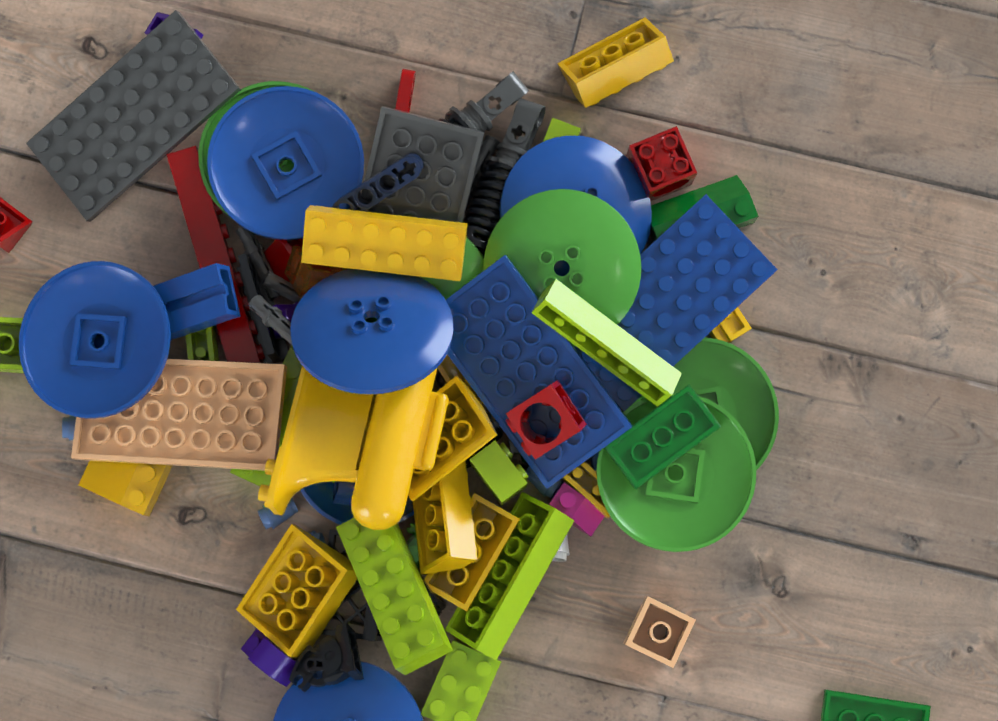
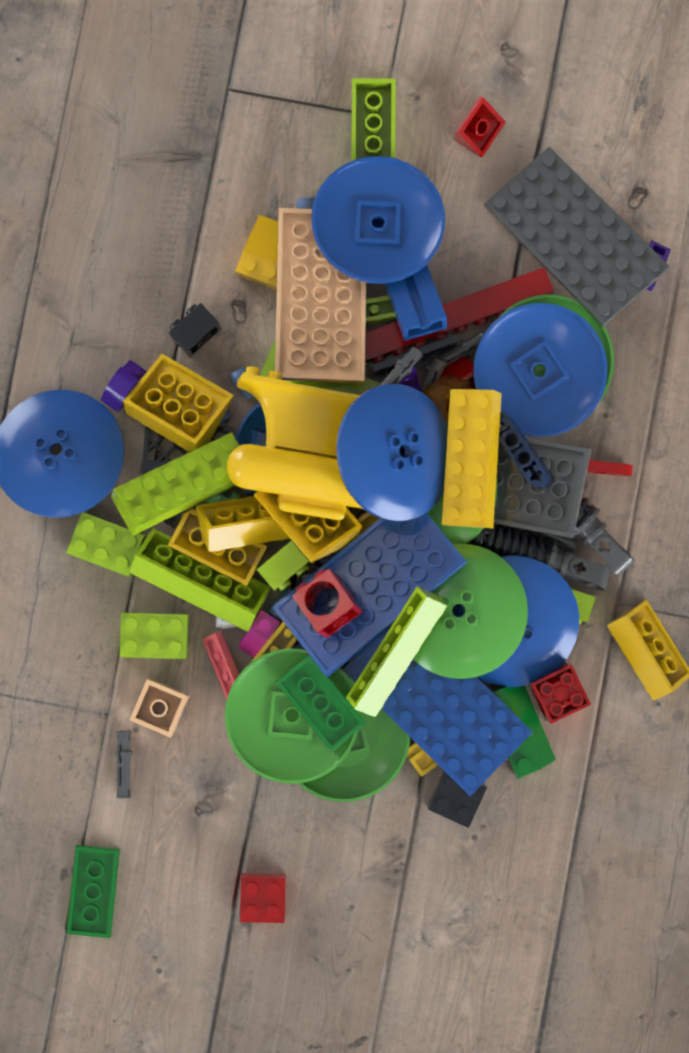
camera: 85 degrees right, 5 degrees up
(209, 567) = (194, 329): none -> black brick
(329, 661) = (123, 436): black piece -> none
(573, 634) = (154, 635): none -> lime brick
(608, 555) = (221, 660): none -> coral plate
(724, 679) = (123, 764): none -> dark grey pin
(781, 292) = (453, 802): none -> black brick
(887, 519) = (263, 898): none -> red brick

